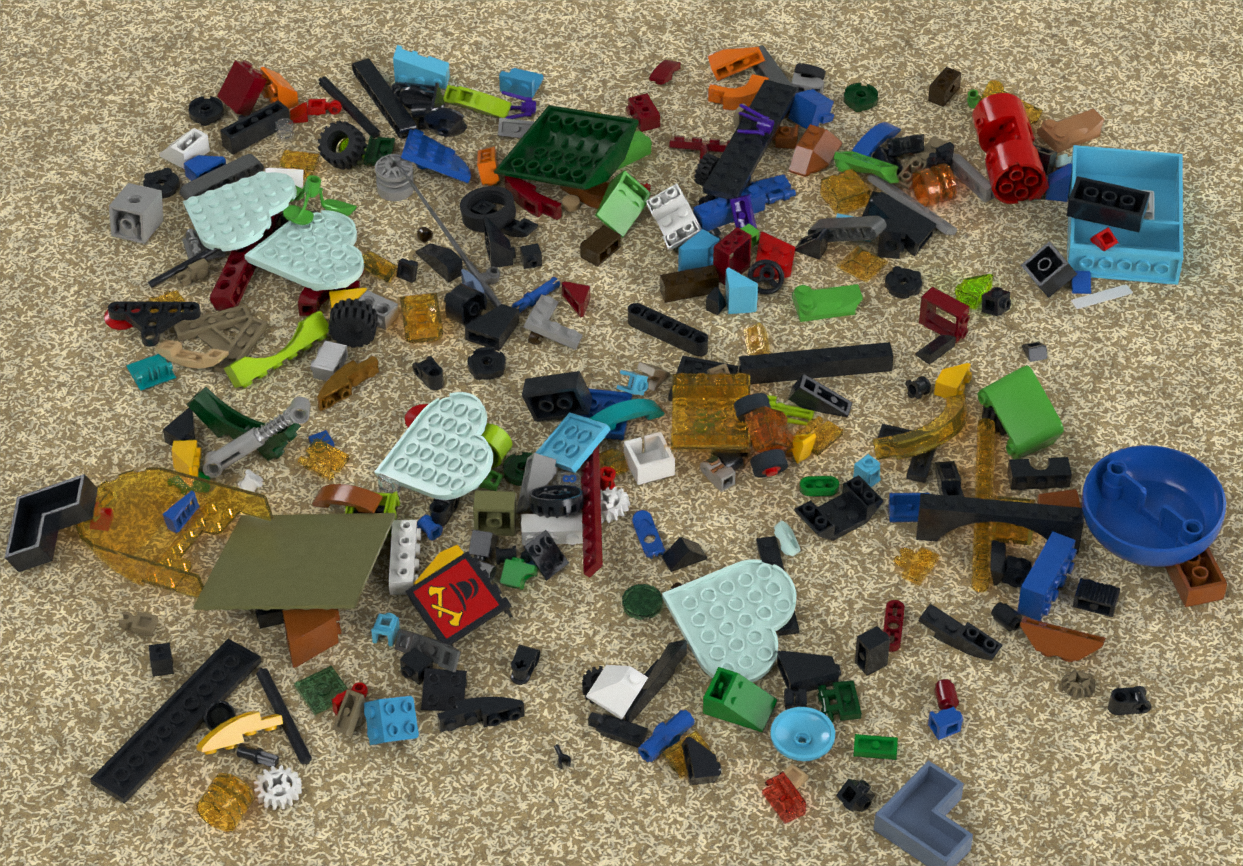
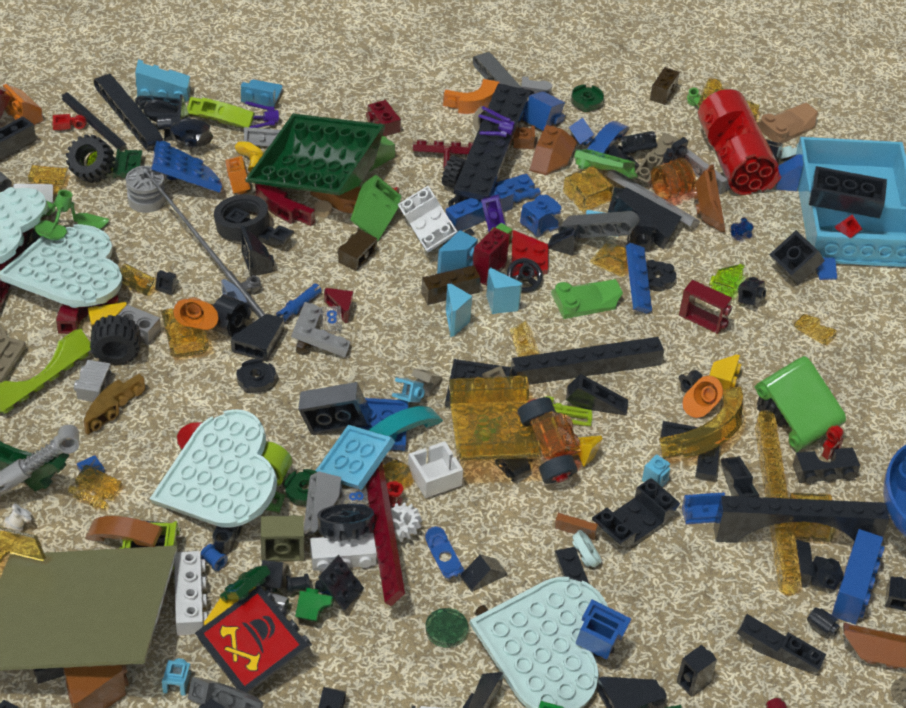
camera: 10 degrees left, 0 degrees up
(285, 130) = (31, 146): clear wheel -> none
(299, 113) = (44, 129): red slope -> none
(388, 484) = (165, 512): clear slope -> none
(424, 234) = (180, 245): dark brown hinge -> none
(429, 373) = (198, 389): black piece -> none
(432, 301) = (195, 313): none -> orange piece
(442, 260) = (200, 270): black slope -> none
(457, 546) = (245, 583): none -> dark green plate
(502, 141) = (249, 150): none -> yellow arm
(531, 256) = (289, 263): black plate -> none
(565, 312) = (331, 319): none -> clear brick
(664, 71) = (398, 79): dark red slope -> none
(668, 329) = (435, 332): black beam -> none
(693, 305) = (457, 309): none -> medium azure slope
(715, 301) = (479, 302): black slope -> none
(717, 473) = (506, 481): light grey leg -> none
(734, 60) = (465, 66): orange slope -> none
(775, 515) = (573, 525): none -> dark orange tile
(784, 607) = (601, 629): none -> blue plate
(789, 217) = (540, 214): none -> blue piece
(809, 71) = (537, 74): black tyre -> none
(819, 486) = (609, 489): green plate -> none
(825, 434) = (609, 431): clear yellow plate -> none
(847, 132) = (582, 132): none -> blue slope
(881, 284) = (638, 278): none -> blue plate
(897, 633) = (713, 631): dark red beam -> none
(919, 564) = (725, 569): clear yellow hinge -> none
(926, 402) = (702, 396): none -> orange piece
(936, 348) = (700, 340): black slope -> none
(969, 206) = (709, 199): none -> dark orange wedge
(999, 239) = (741, 229): none -> clear blue brick
(1035, 351) = (796, 339): slope -> none
(1051, 450) = (833, 442): none -> red plate
(1055, 342) = (811, 327): none -> clear yellow slope
(1060, 498) = (852, 492): dark orange slope -> none
(1101, 296) = (848, 281): white sticker -> none

